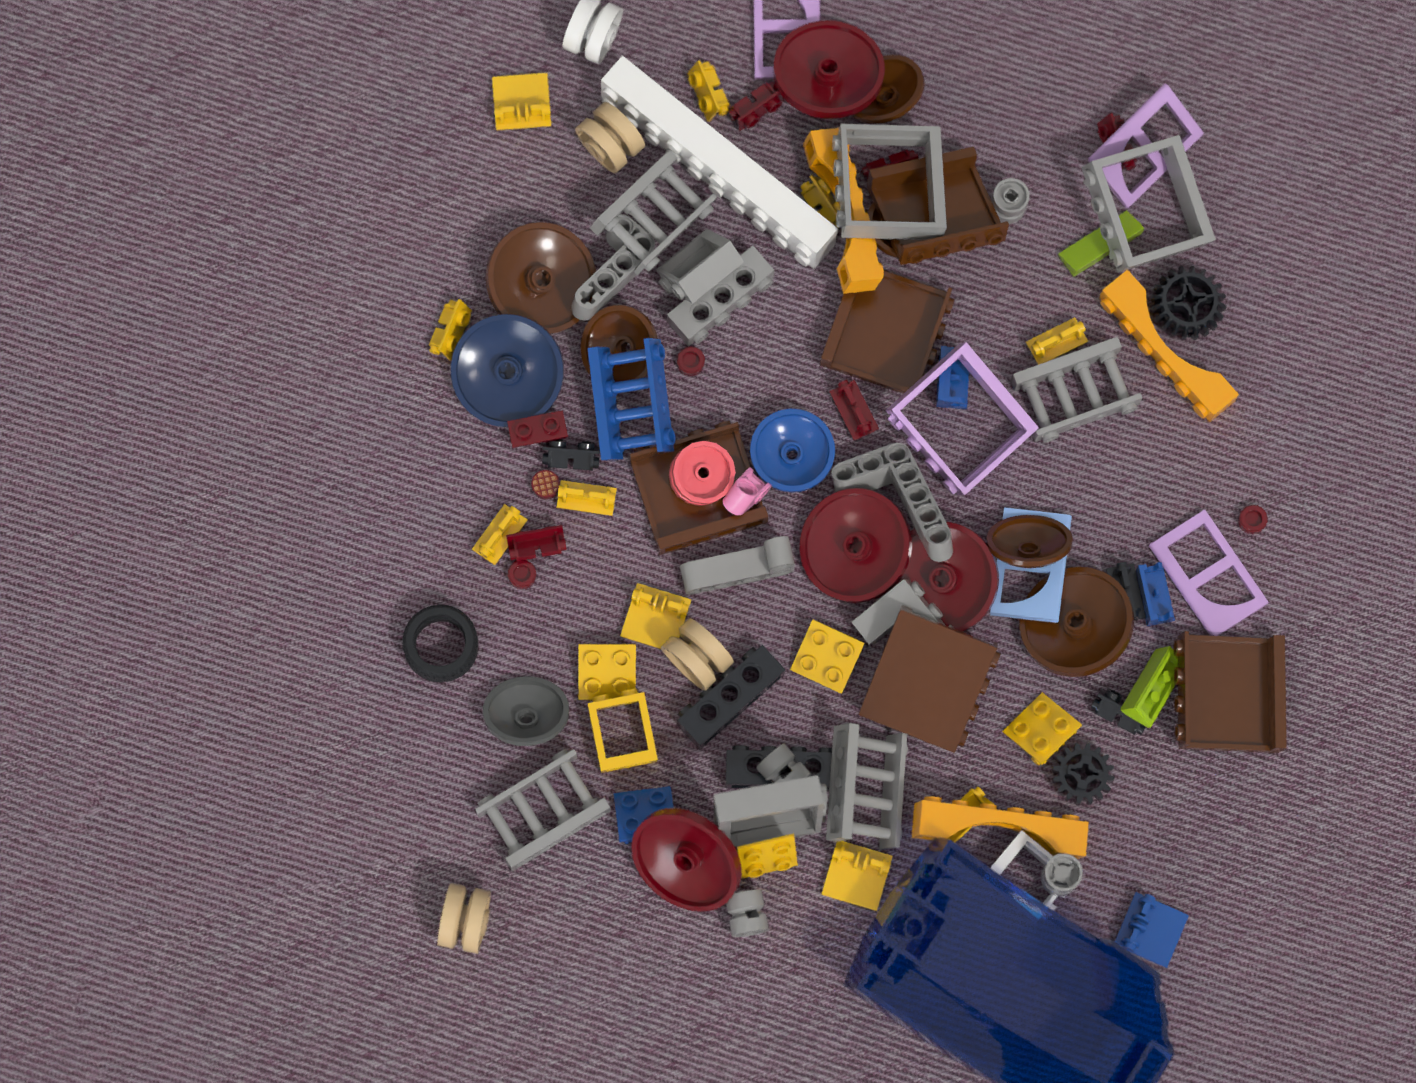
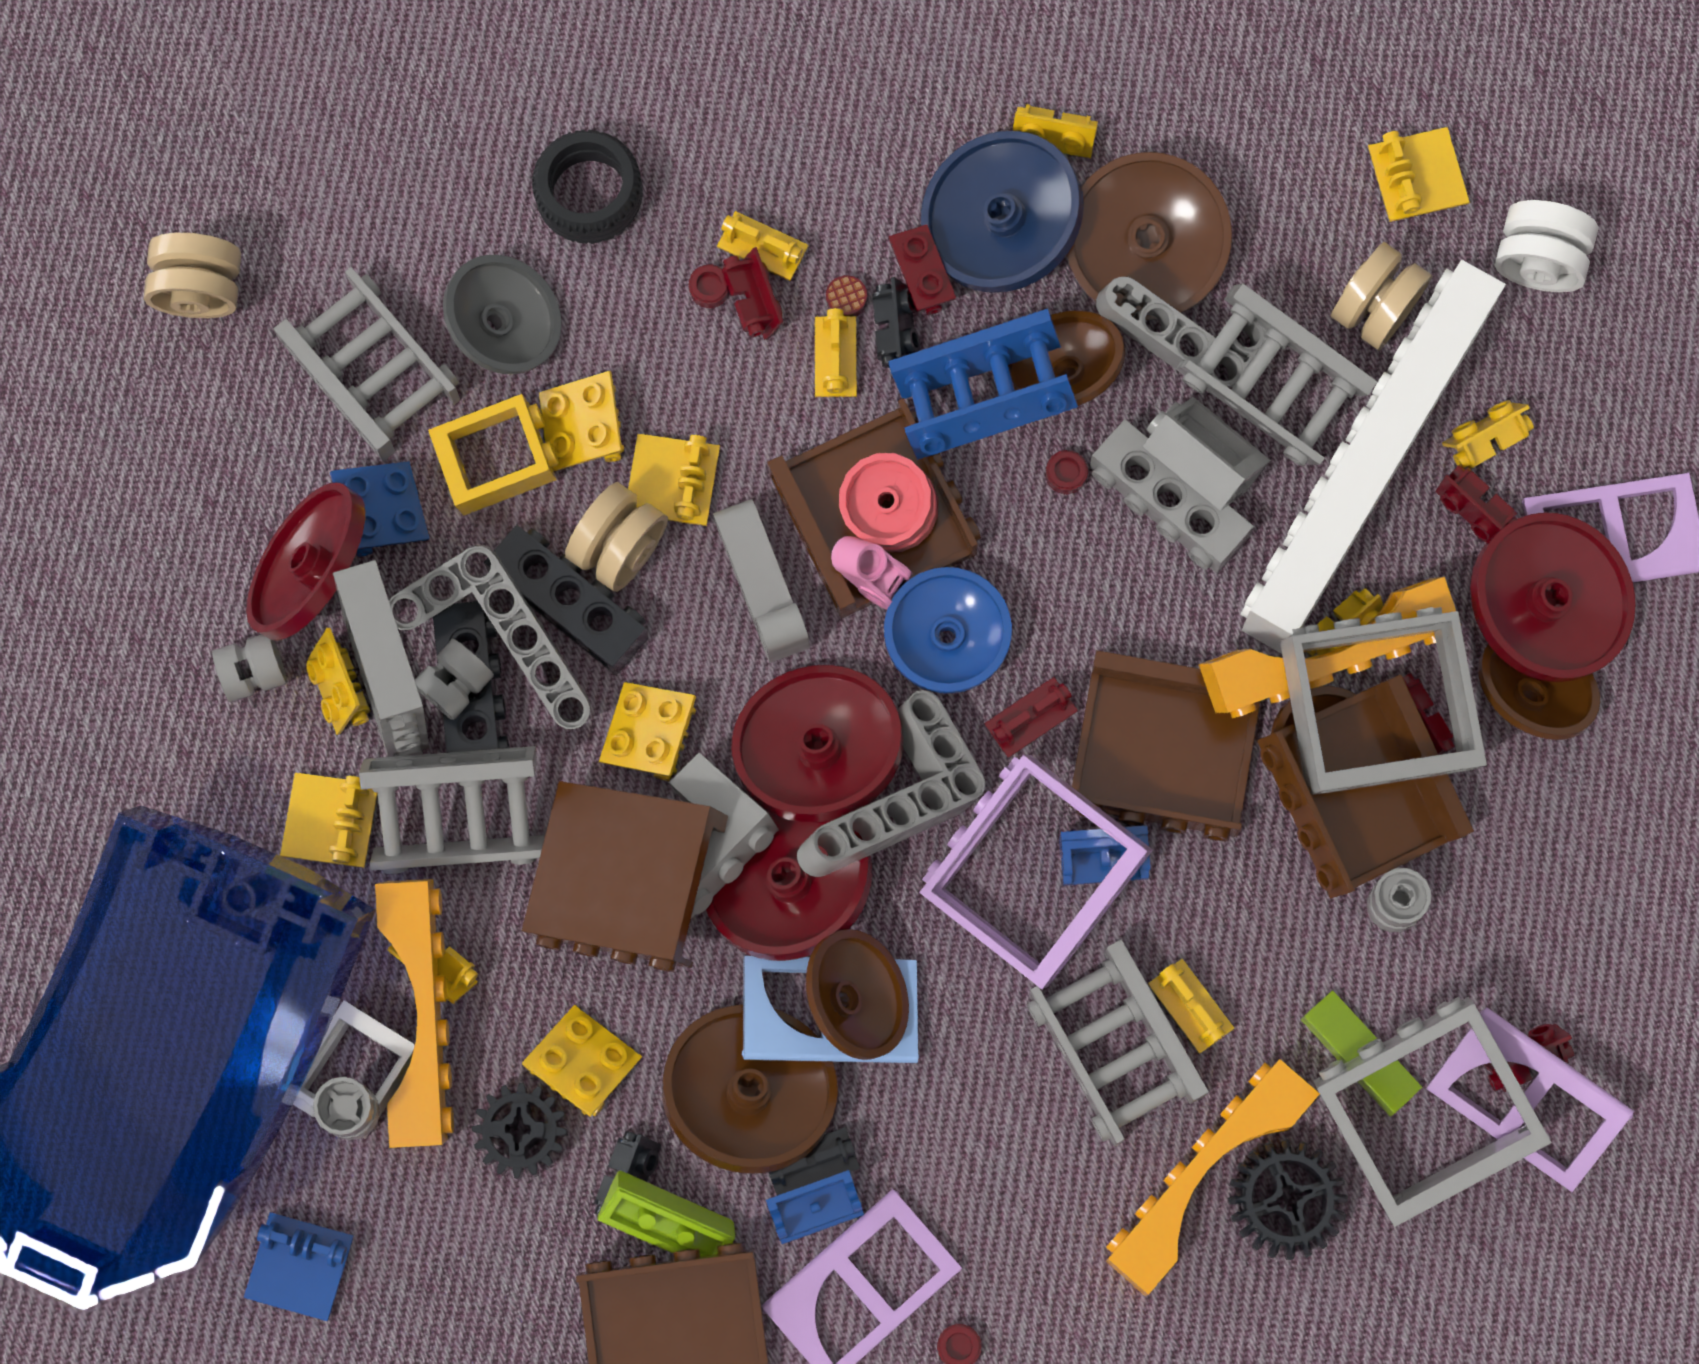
camera: 90 degrees right, 0 degrees up
(746, 732) = (504, 623): none -> light grey beam

